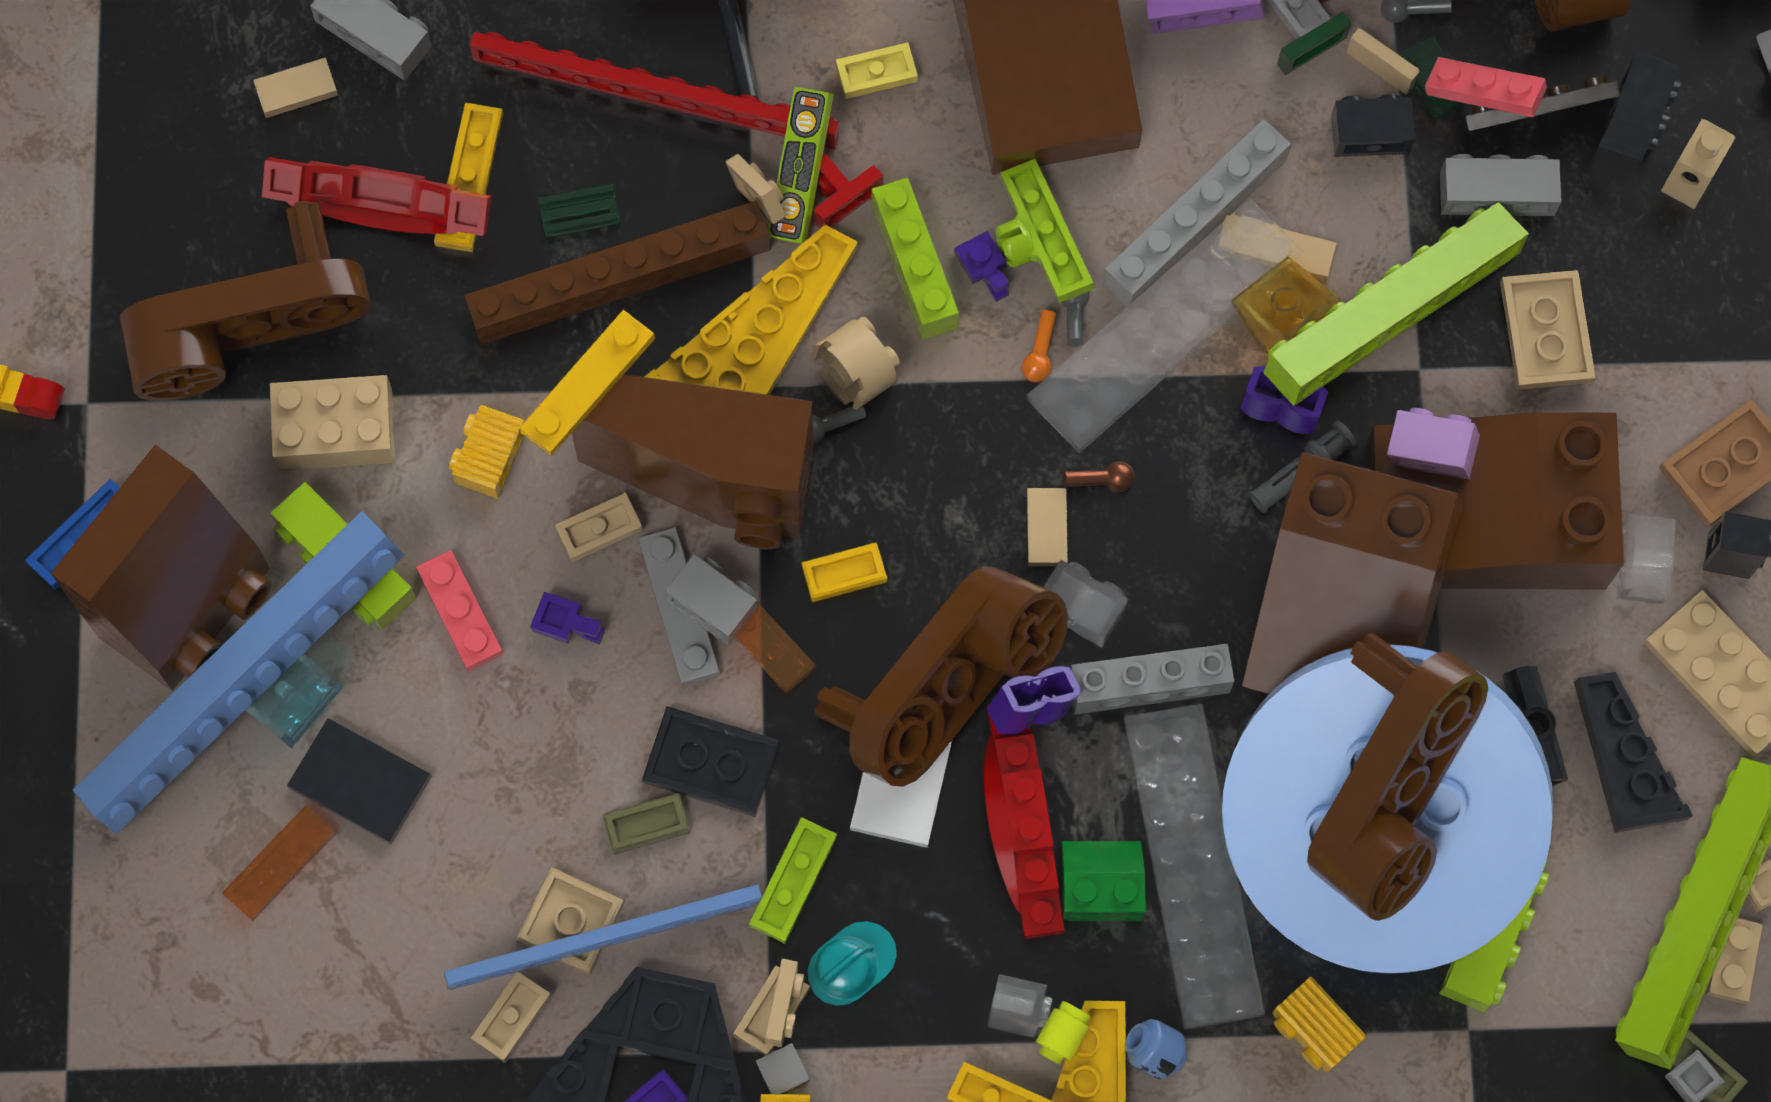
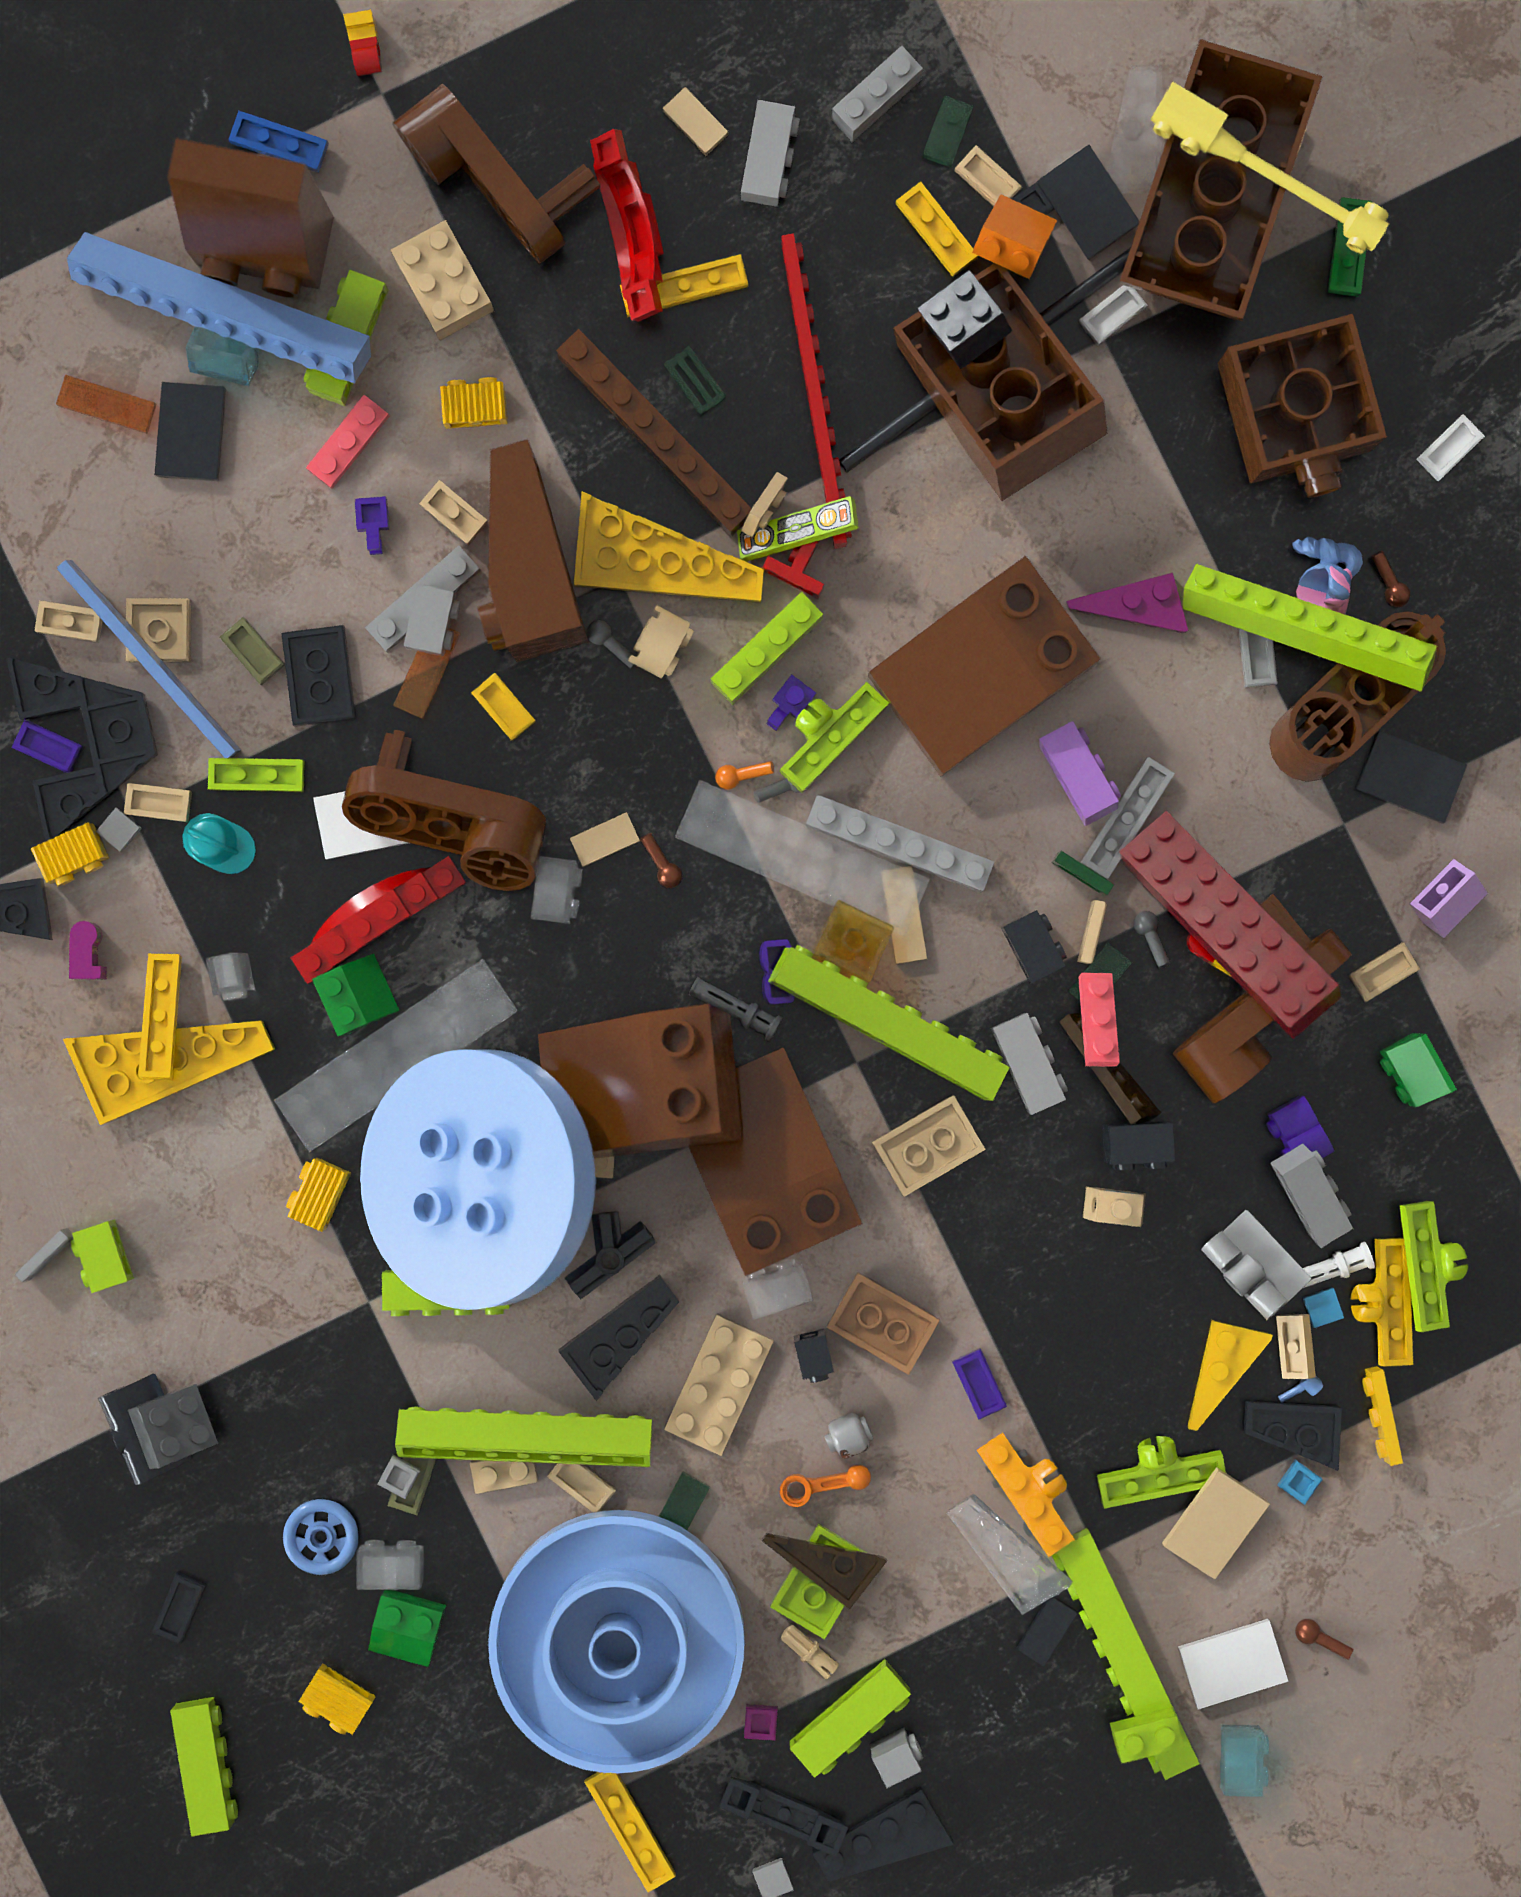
camera: 70 degrees right, 15 degrees up
(587, 383) = (517, 454): yellow plate -> none
(781, 1021) = (172, 806): tan plate -> none
(876, 70) = (908, 551): light yellow plate -> none
(1034, 700) = (459, 892): dark purple brick -> none
(1063, 1033) = (225, 1015): neon yellow brick -> none
(1153, 678) = (519, 965): light grey brick -> none
(1156, 1049) = (248, 1086): medium blue head -> none
(1369, 834) = (428, 1174): reddish brown beam -> none
(1433, 443) = (778, 1097): lavender brick -> none

